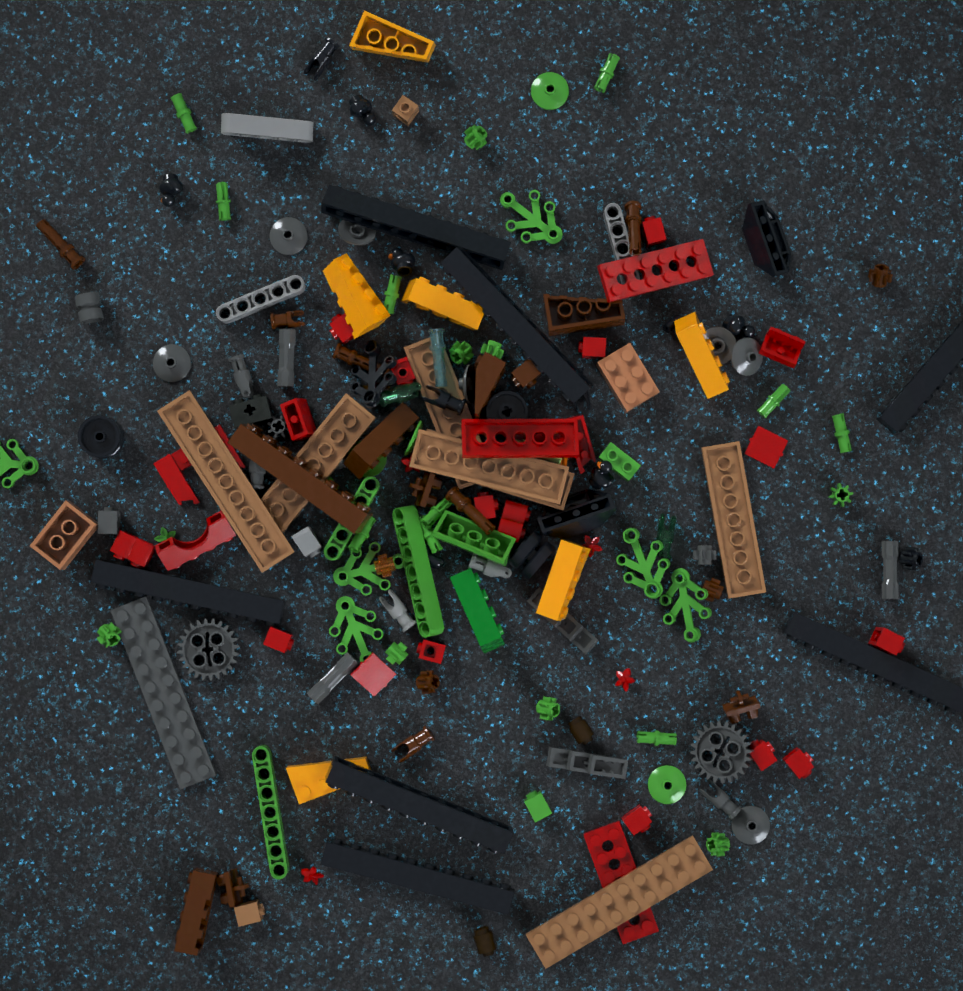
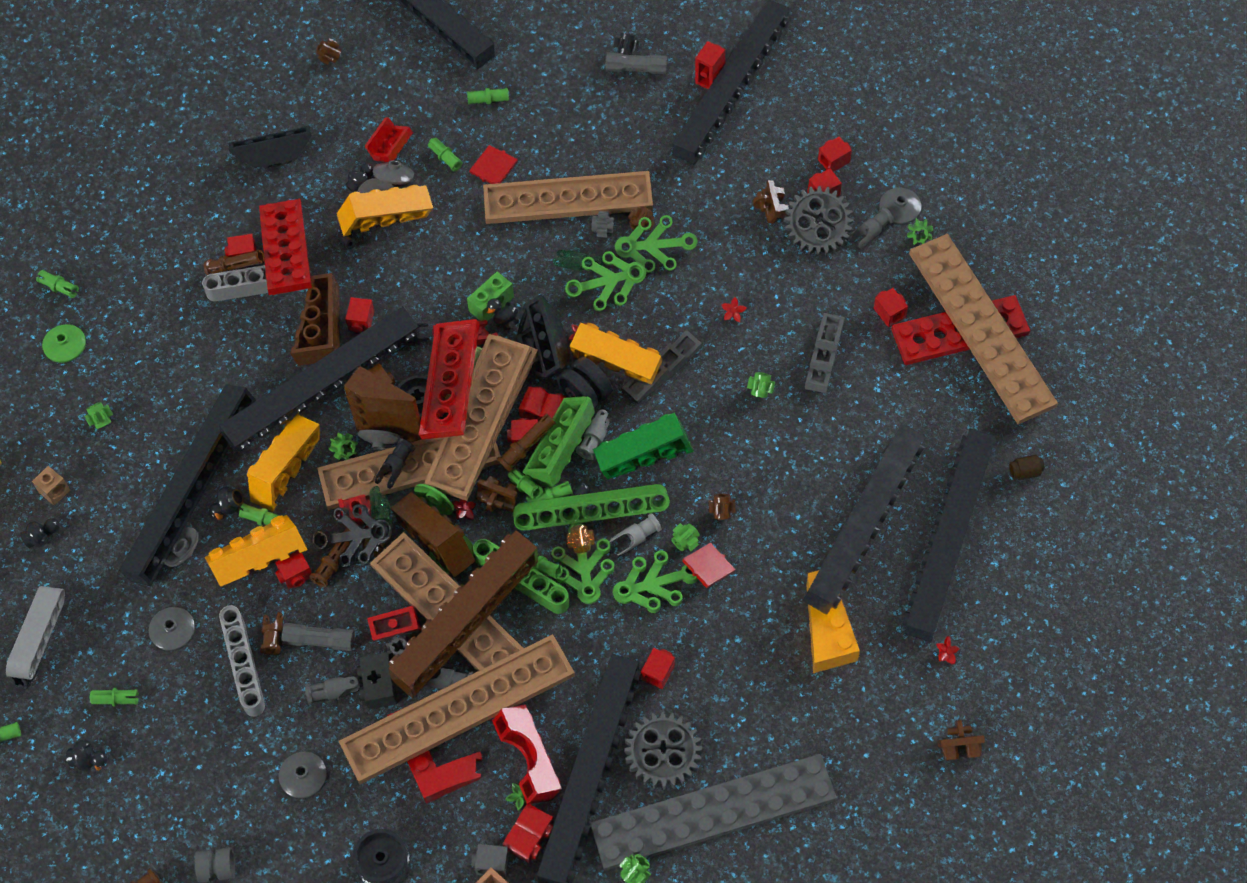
camera: 80 degrees left, 25 degrees down
(196, 912) = (990, 785): reddish brown wedge -> none
(249, 912) = (992, 724): medium nougat brick -> none
(268, 821) = (876, 684): bright green beam -> none
(307, 542) = (542, 622): light grey slope -> none
(332, 678) = (721, 623): dark grey axle -> none
(415, 742) = (792, 525): reddish brown piece -> none
(437, 347) = (333, 465): clear light blue pin -> none
(438, 653) = (684, 494): red brick -> none
(493, 348) = (344, 415): bright green gear -> none
(533, 220) = (204, 366): bright green plant -> none
(537, 805) = (871, 403): bright green brick -> none
(581, 730) = (788, 355): dark brown brick -> none
(627, 378) = (399, 283): nougat brick -> none
(656, 738) = (800, 283): bright green pin -> none
(660, 777) = (853, 287): bright green dish -> none
(840, 500) = (553, 100): bright green gear -> none

